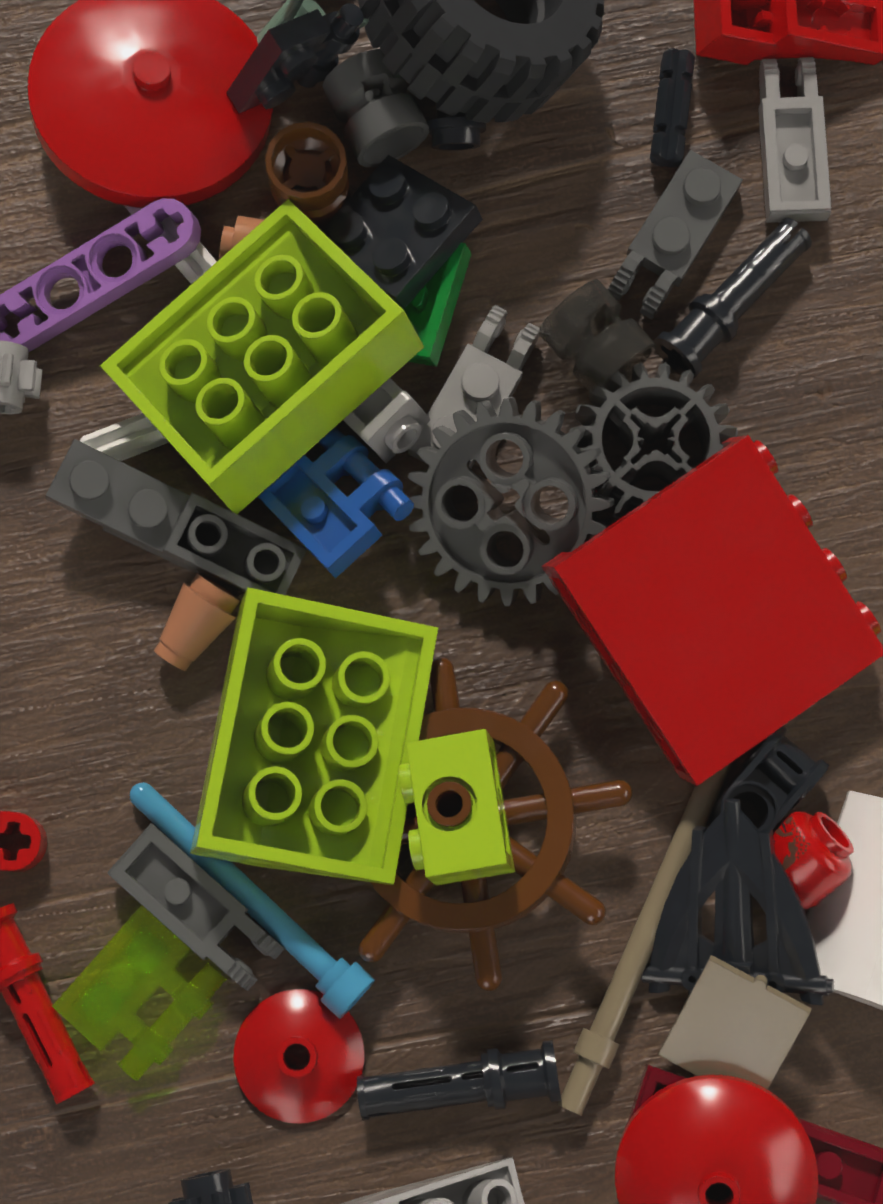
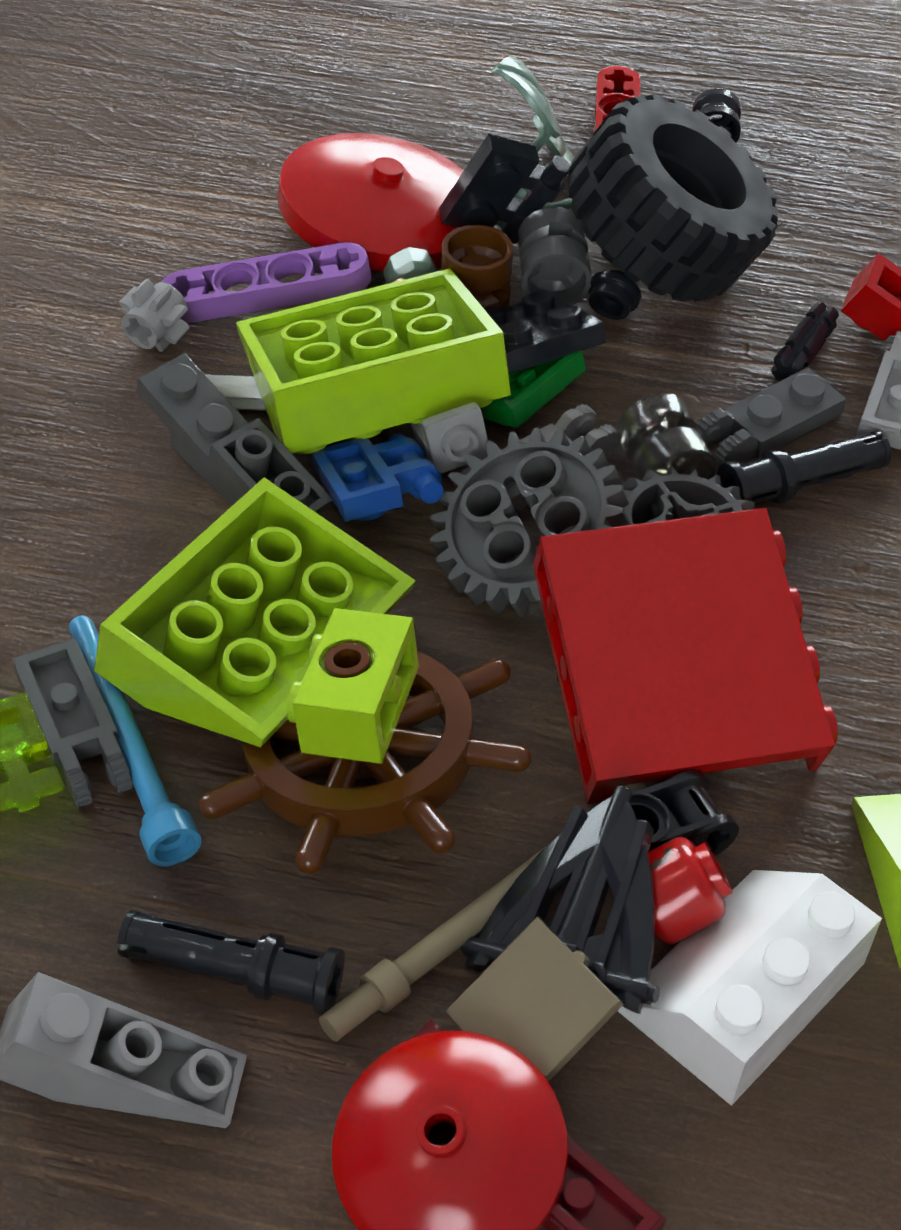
camera: 20 degrees right, 30 degrees down
(196, 620) = (199, 514): nougat cone -> none
(235, 194) = (408, 264): none -> sand green tile
(333, 1066) = (89, 908): red dish -> none

